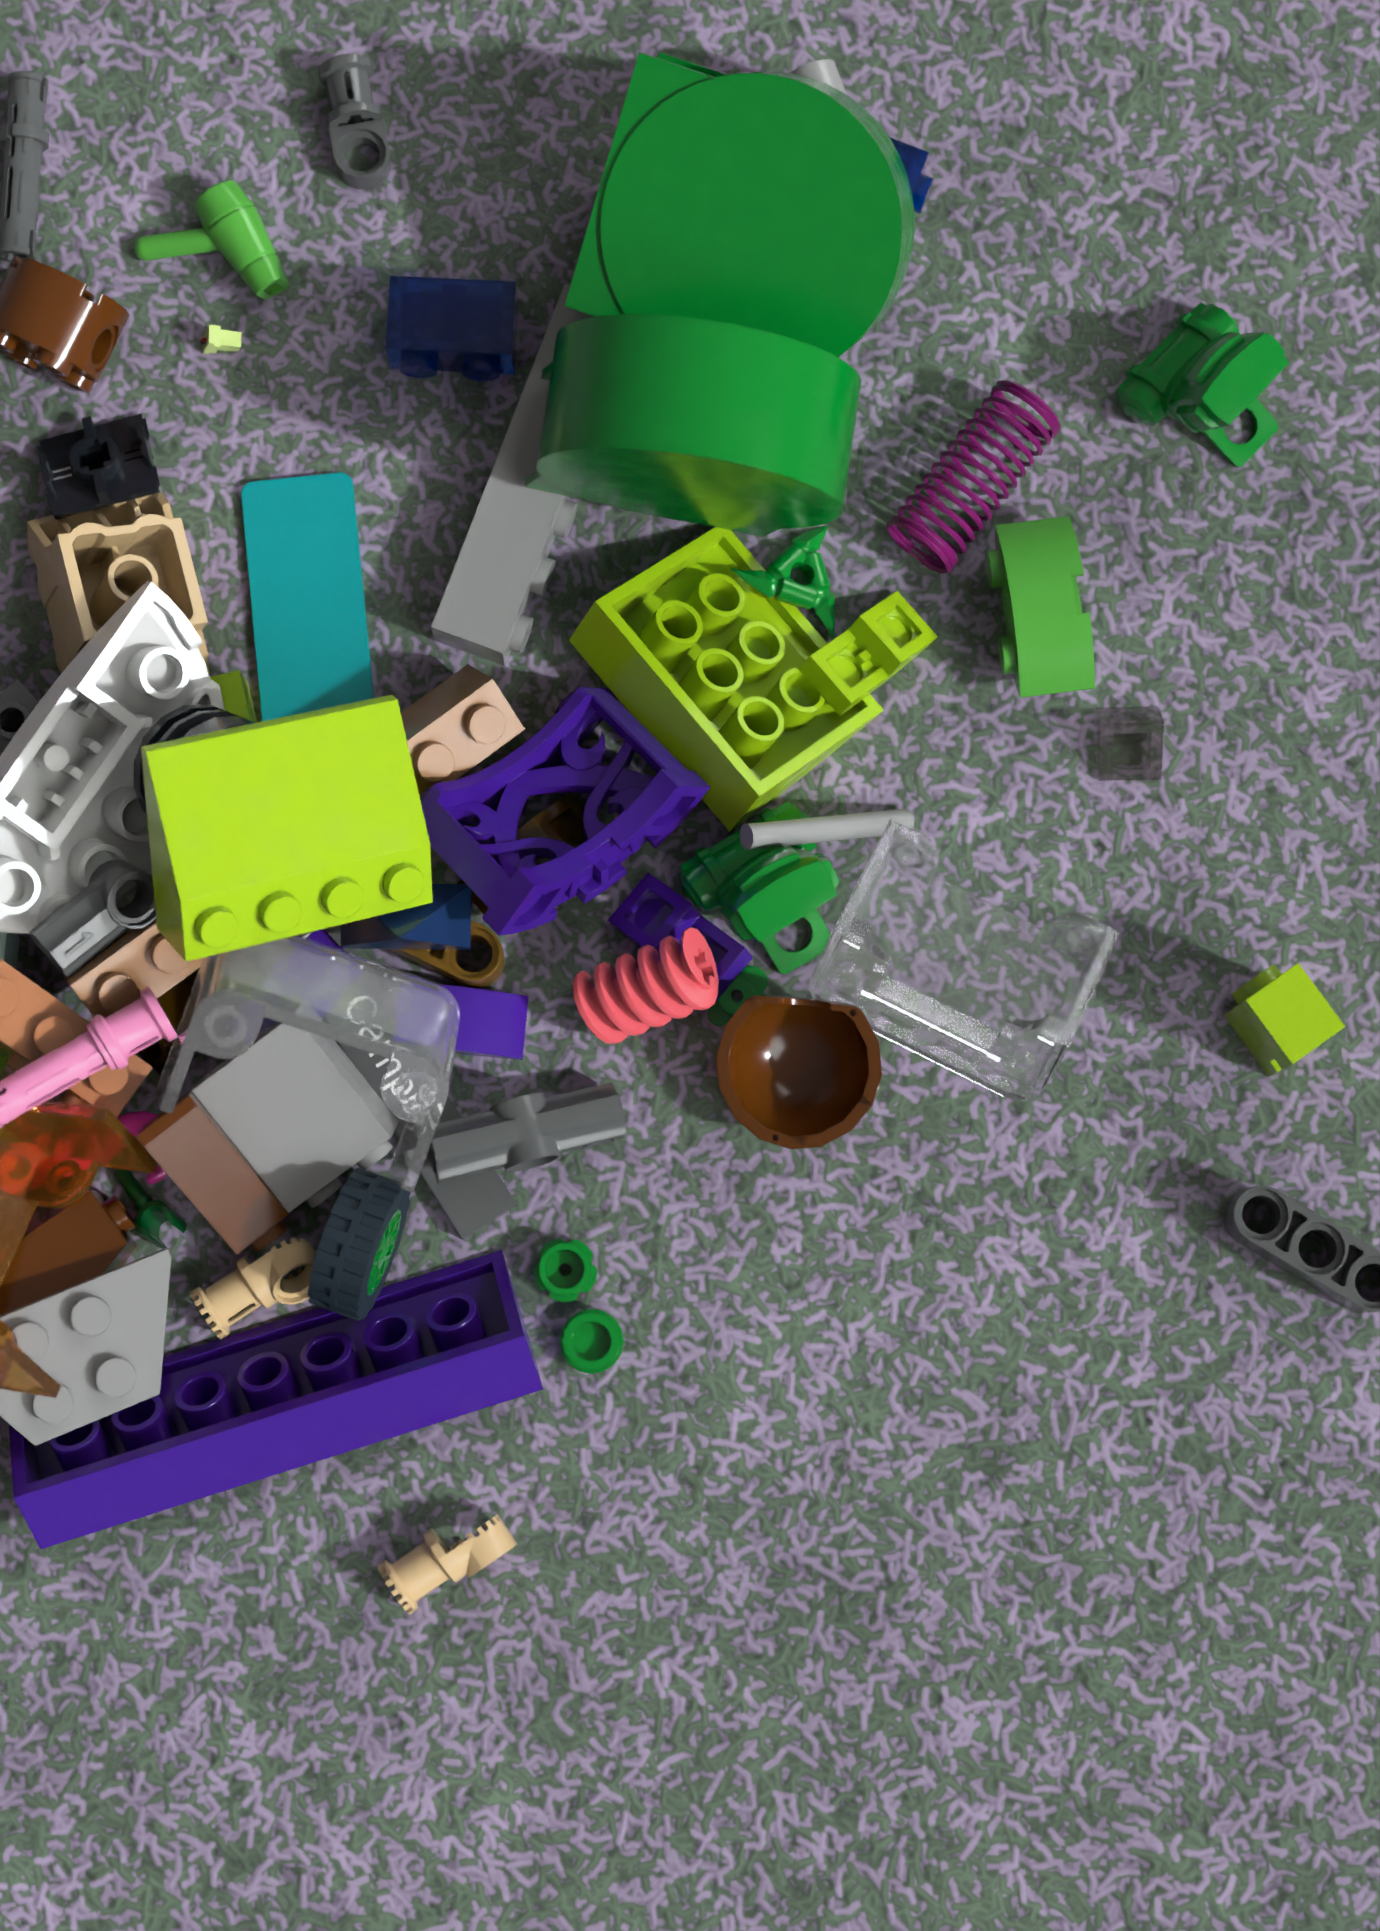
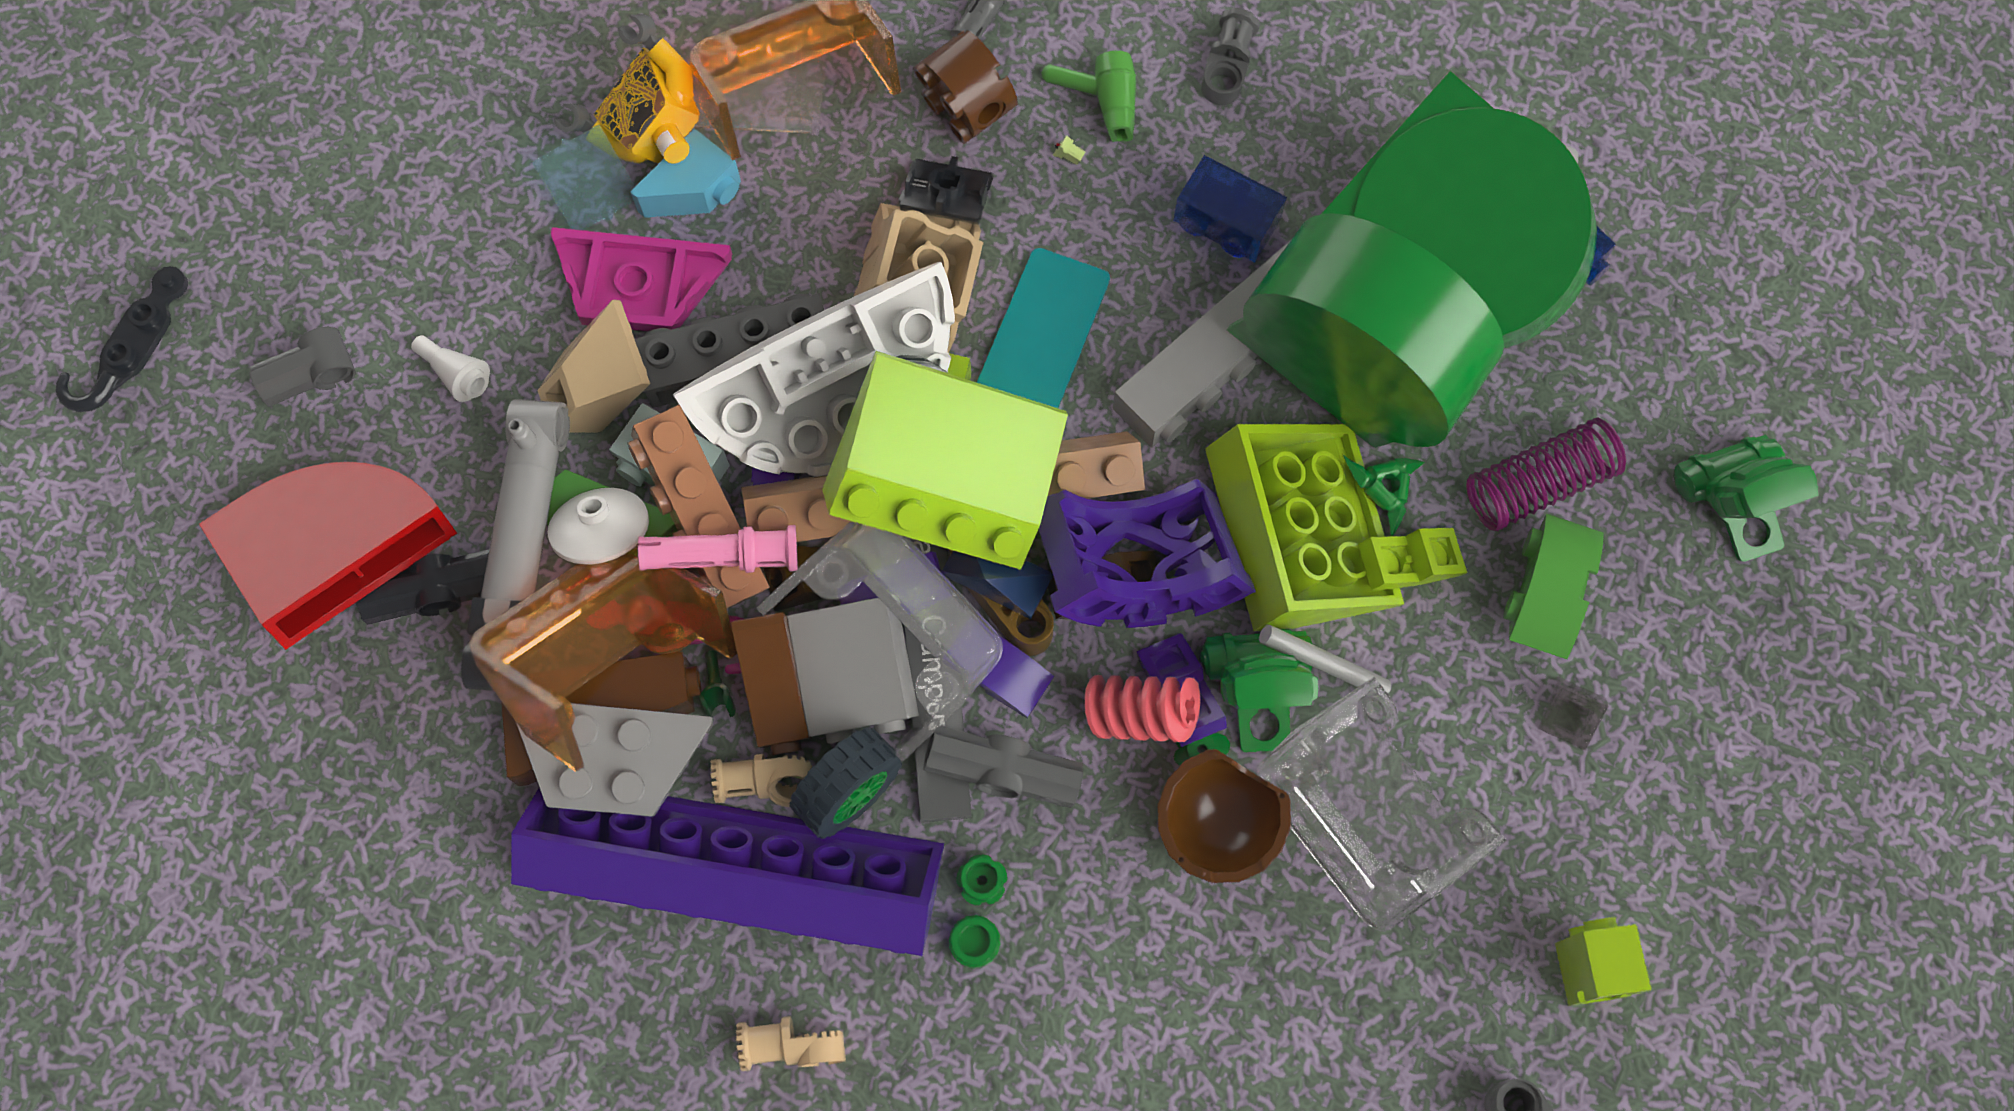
camera: 30 degrees right, 10 degrees down
(91, 918) = (782, 465): dark grey piece -> none

